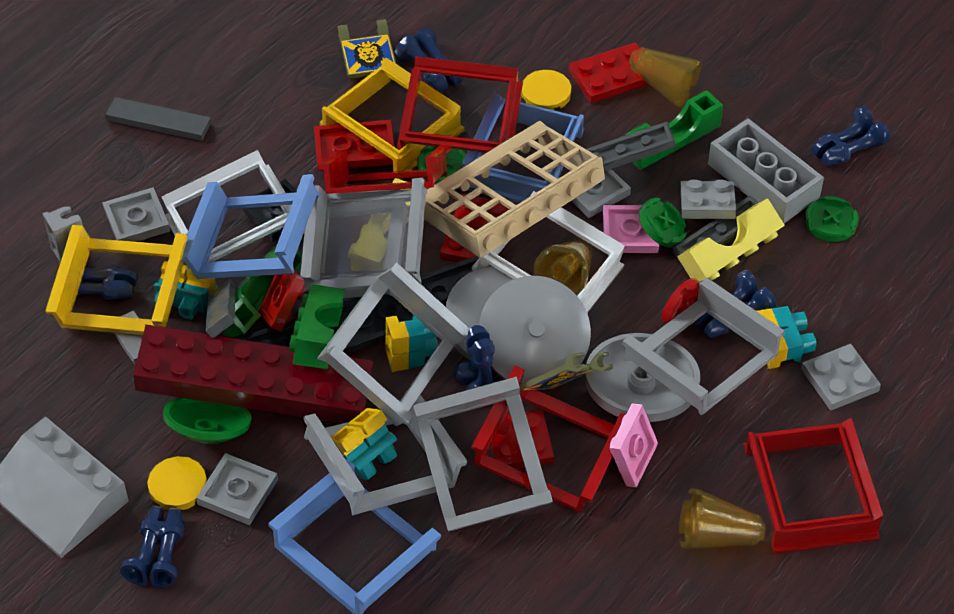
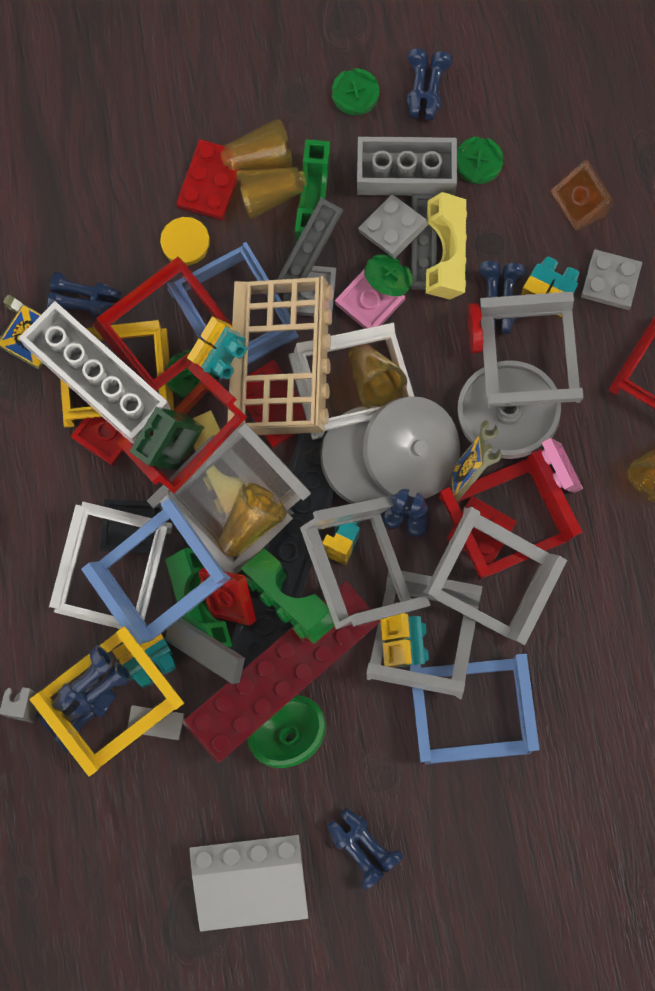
camera: 45 degrees left, 25 degrees up
(136, 216) = (39, 634): light grey plate -> none
(145, 268) = (101, 663): none -> dark blue piece
(176, 482) = (316, 791): yellow tile -> none
(237, 489) = (360, 754): light grey plate -> none
(355, 254) = (250, 519): none -> clear yellow cone
(361, 142) = (161, 448): none -> dark green window
(372, 92) = (92, 371): none -> white brick
(469, 147) = (225, 346): none -> teal hips
(640, 98) = (269, 187): none -> clear yellow cone
(789, 106) = (355, 91): none -> green tile
(883, 303) = (583, 196): none -> clear orange slope

